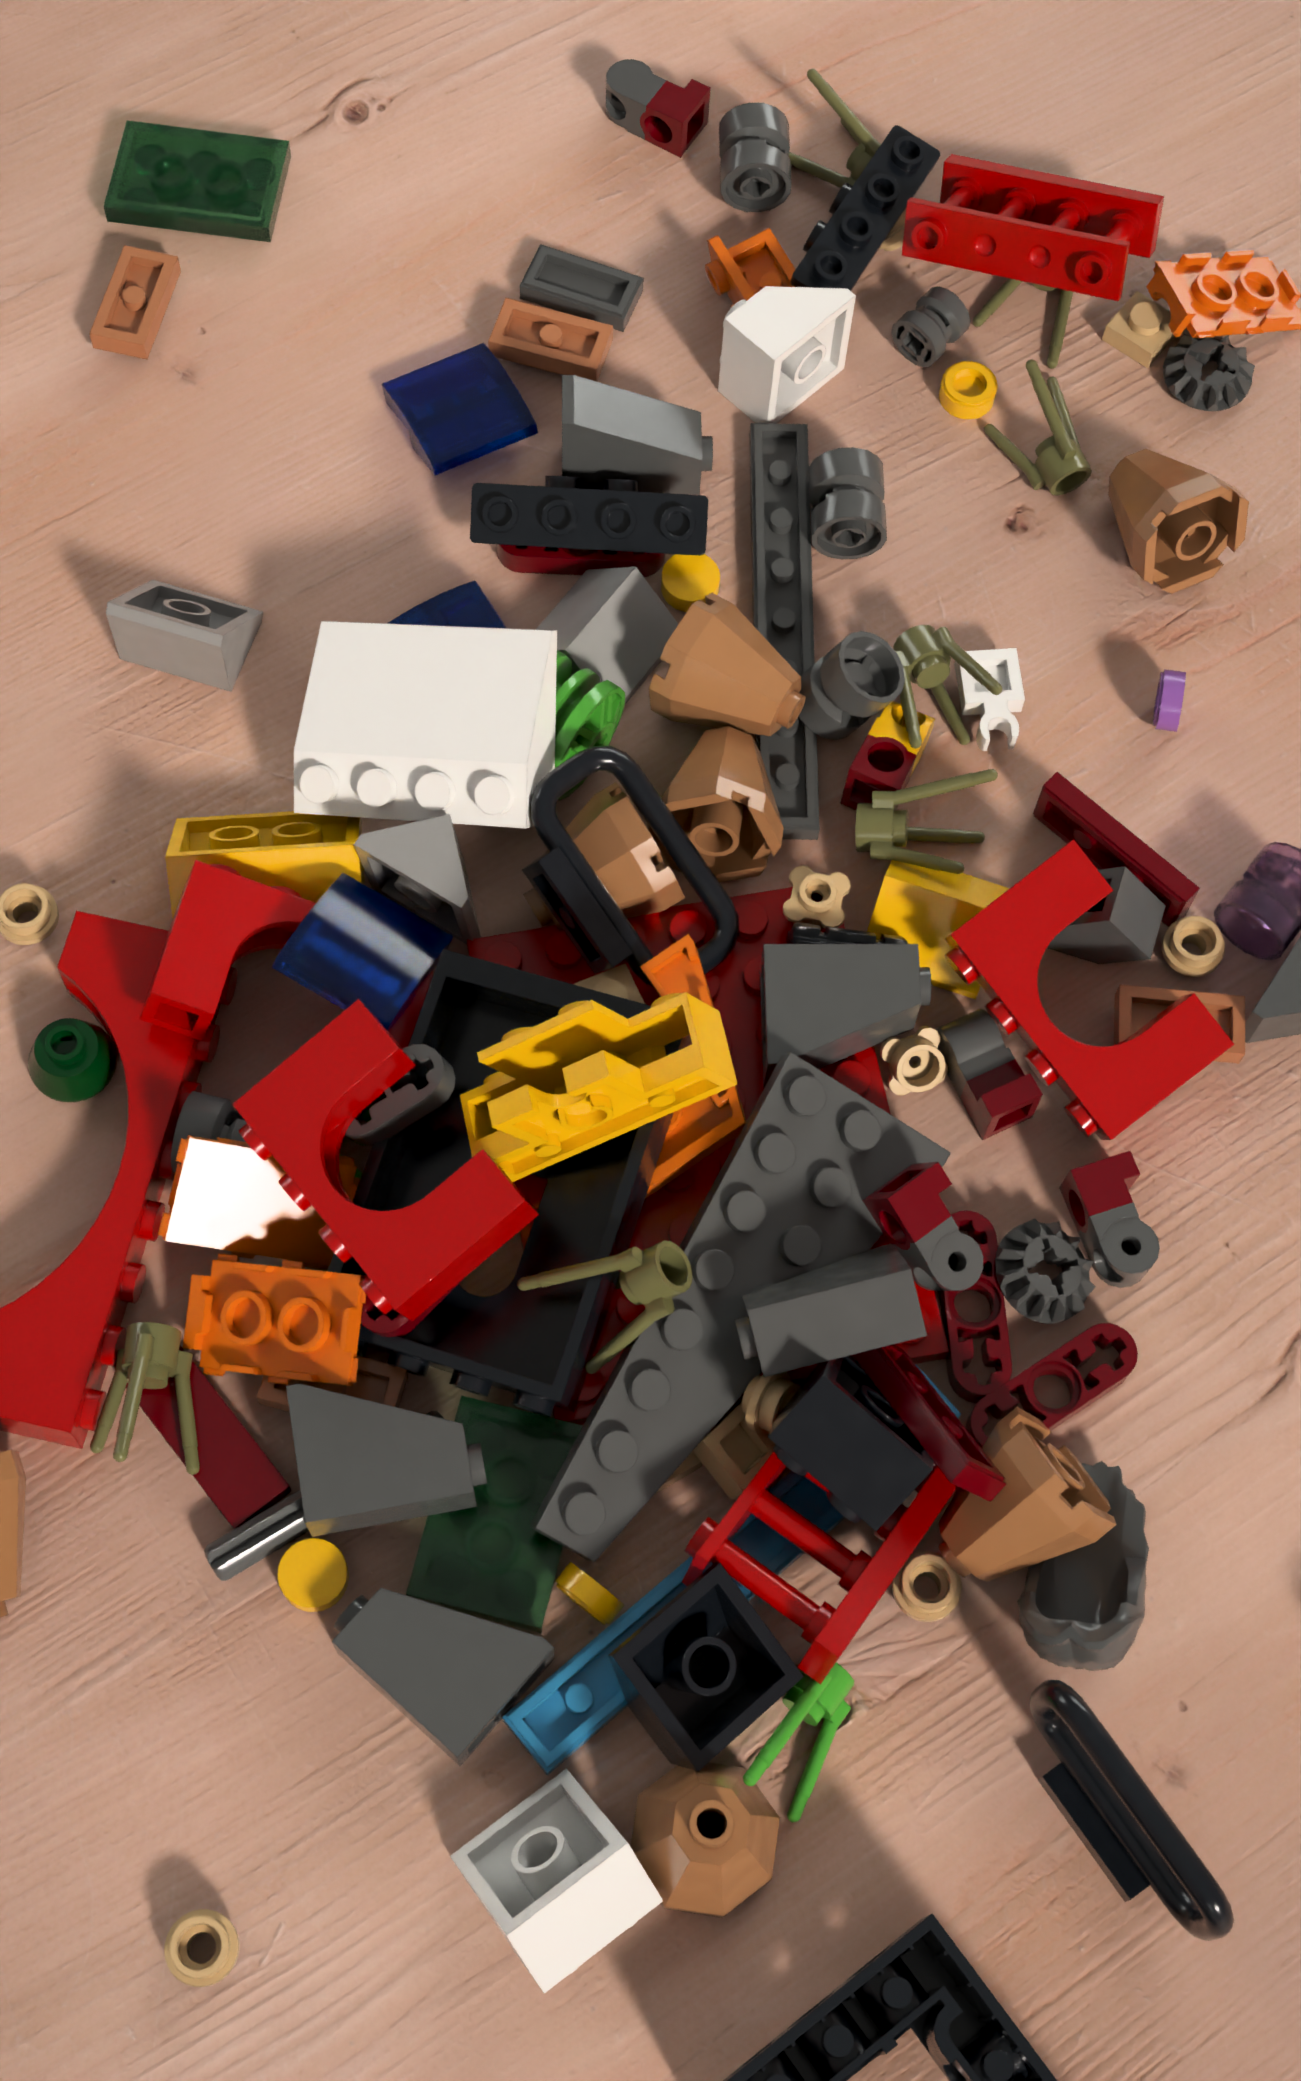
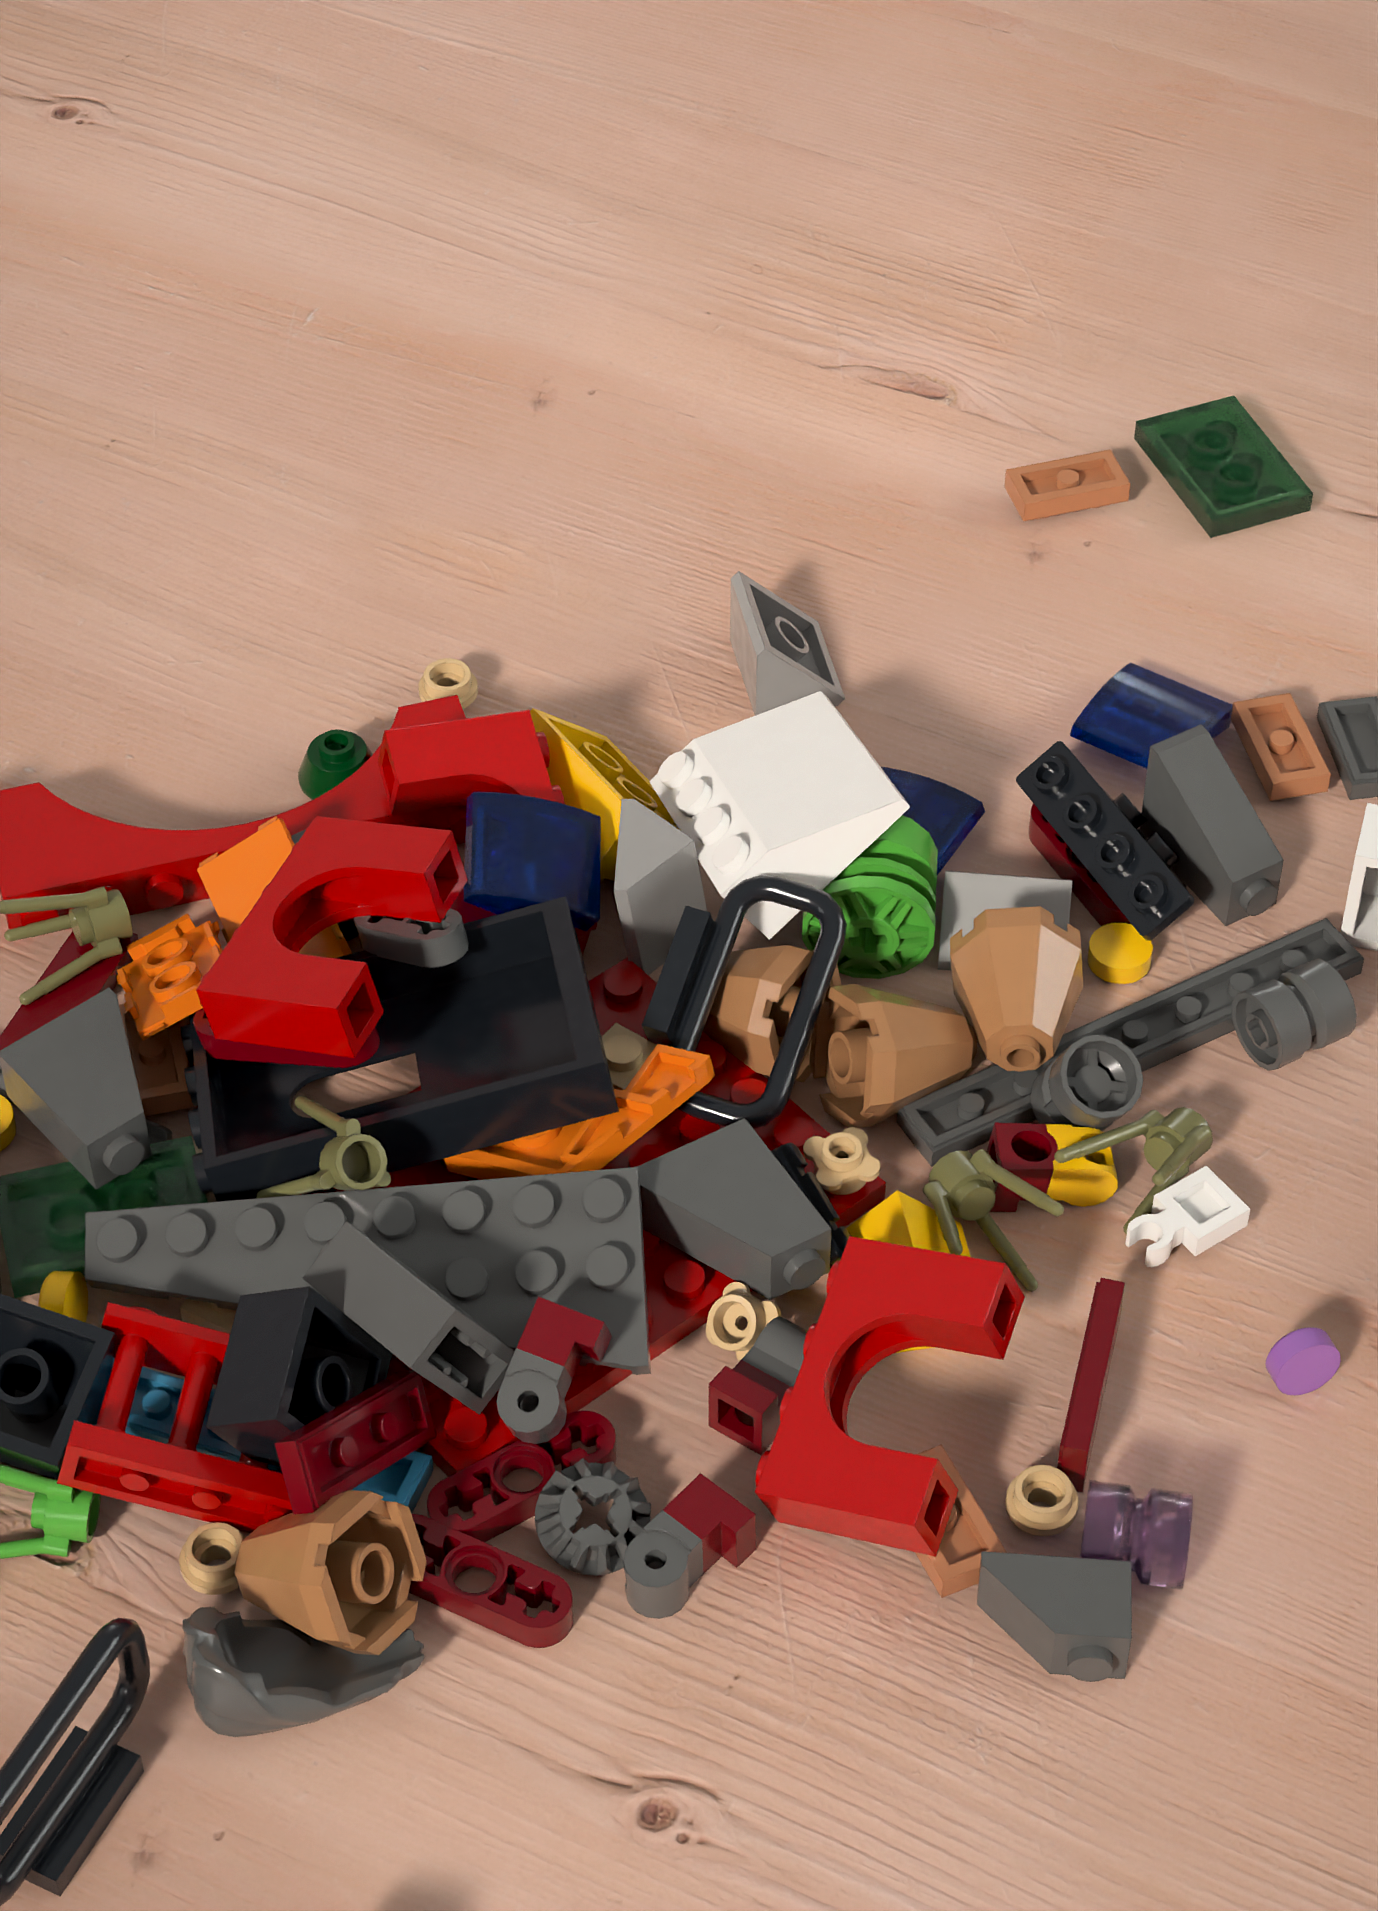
camera: 65 degrees right, 20 degrees down
(592, 1079) = (489, 1014): yellow piece -> none
(1118, 926) = (1003, 1401): dark grey slope -> none

